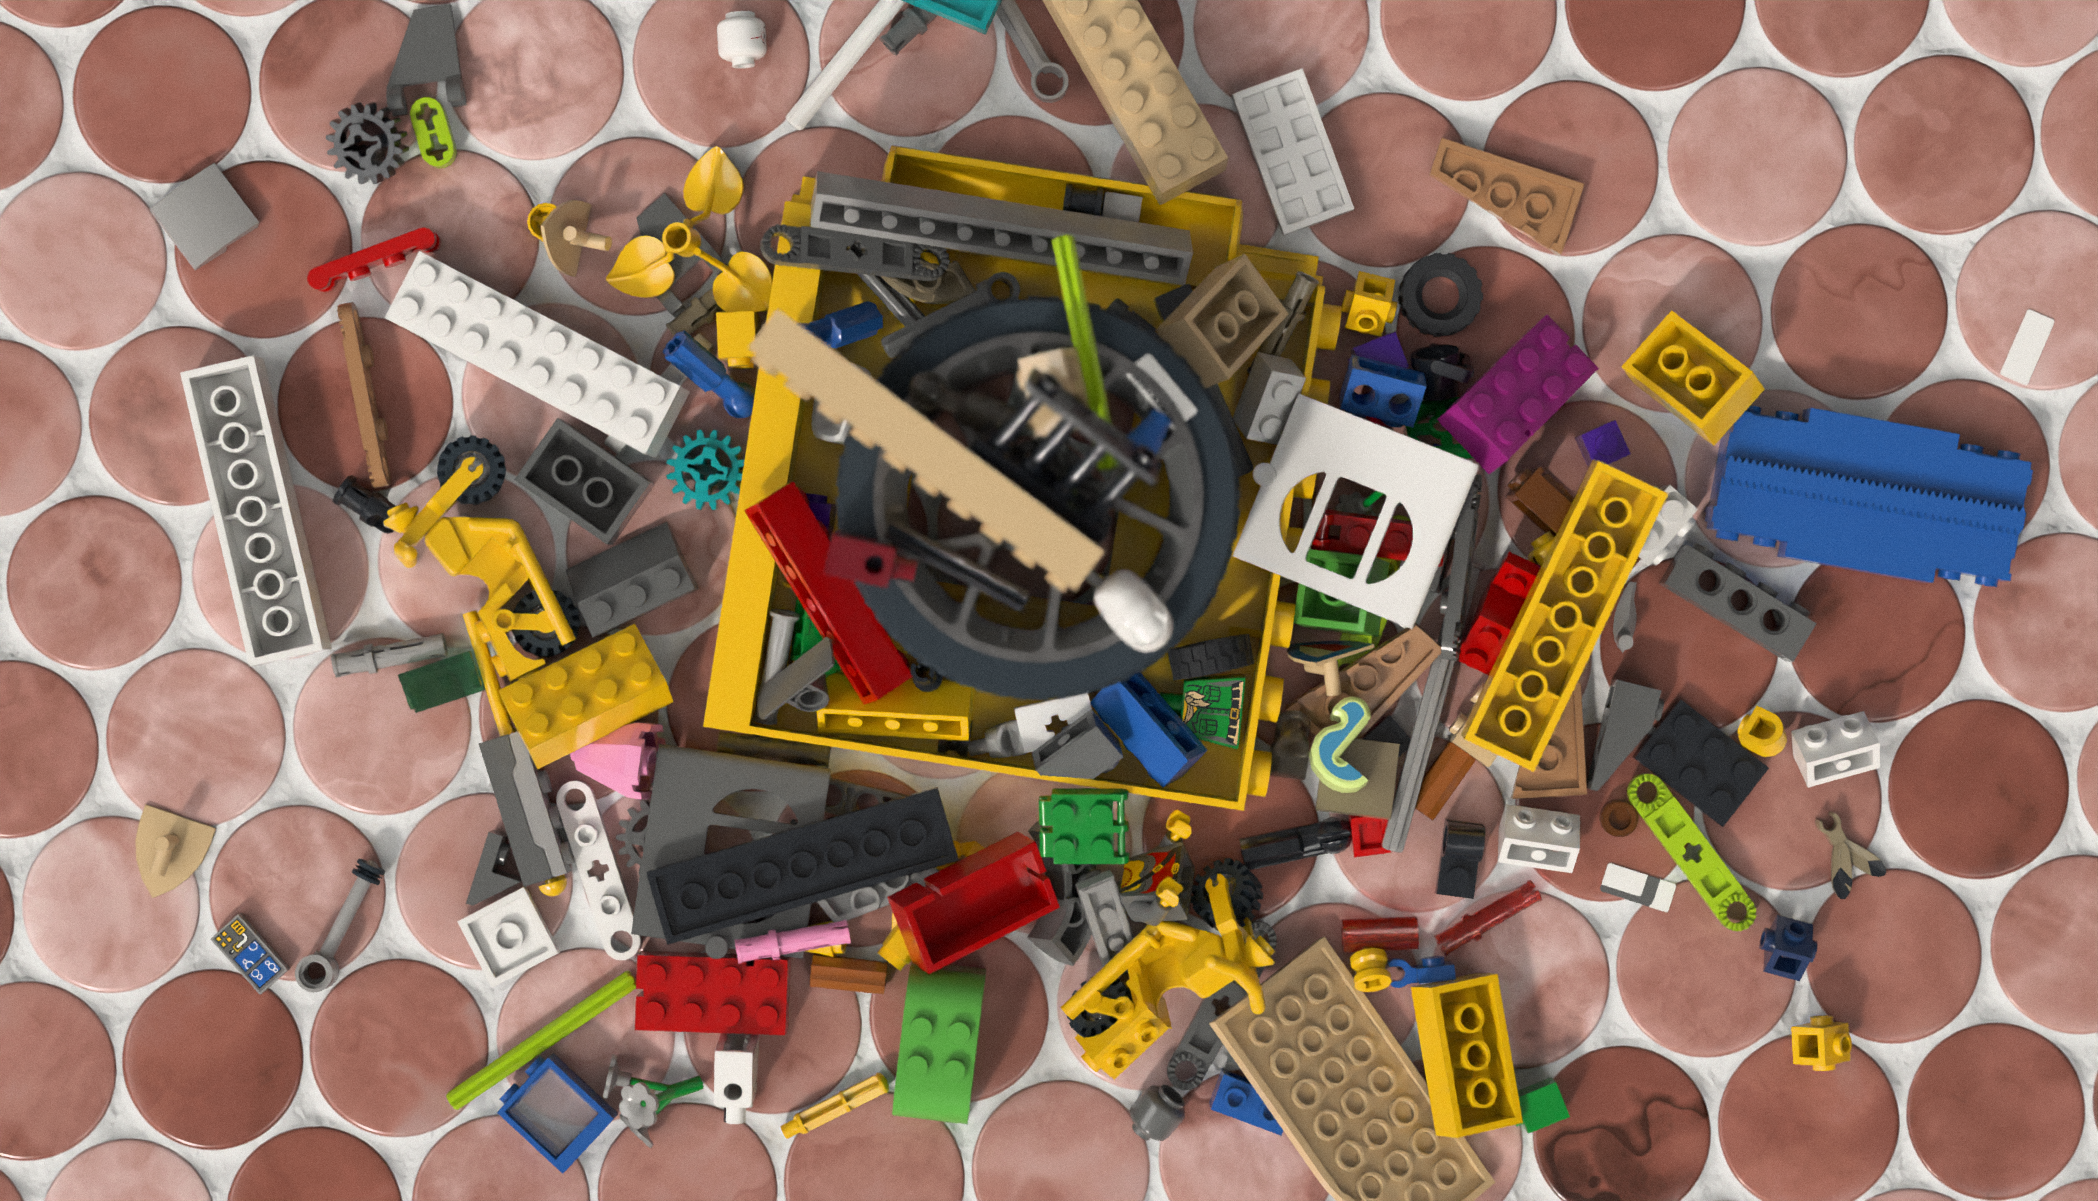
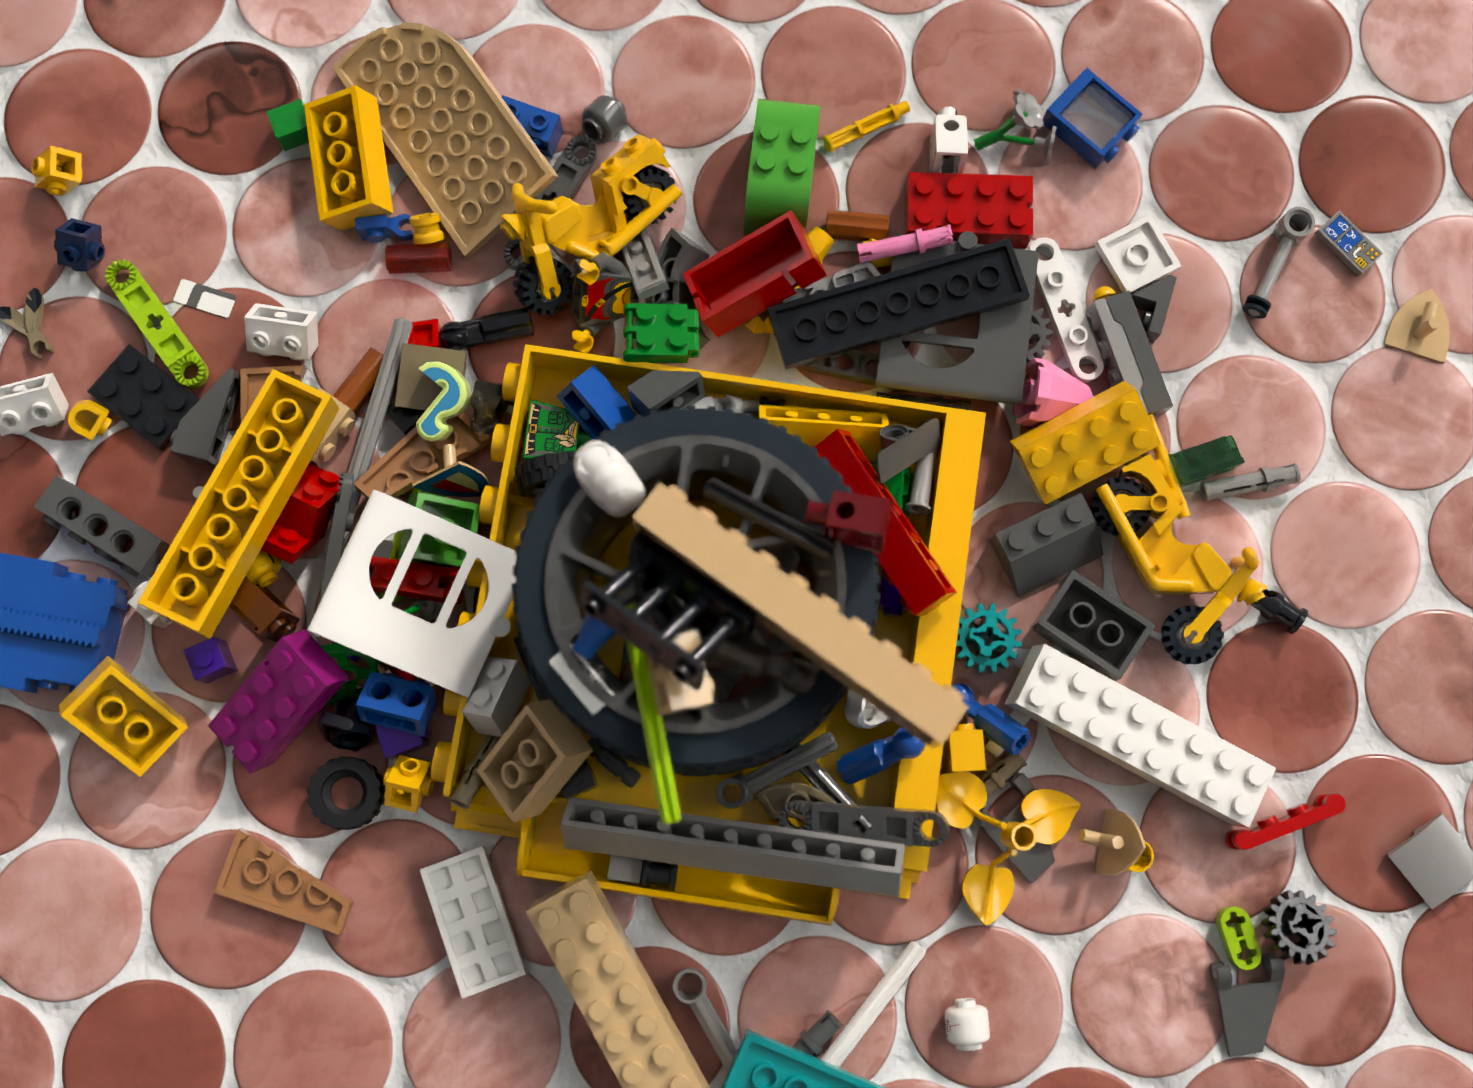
camera: 175 degrees right, 10 degrees down
(255, 510) = (1375, 602): white brick -> none
(359, 359) = (1293, 730): medium nougat piece -> none
(541, 1040) = (1106, 176): lime axle -> none
(1459, 858) = (349, 324): black plate -> none
(1487, 918) = (329, 271): clear red pin -> none
(1618, 818) = (216, 352): reddish brown tile -> none

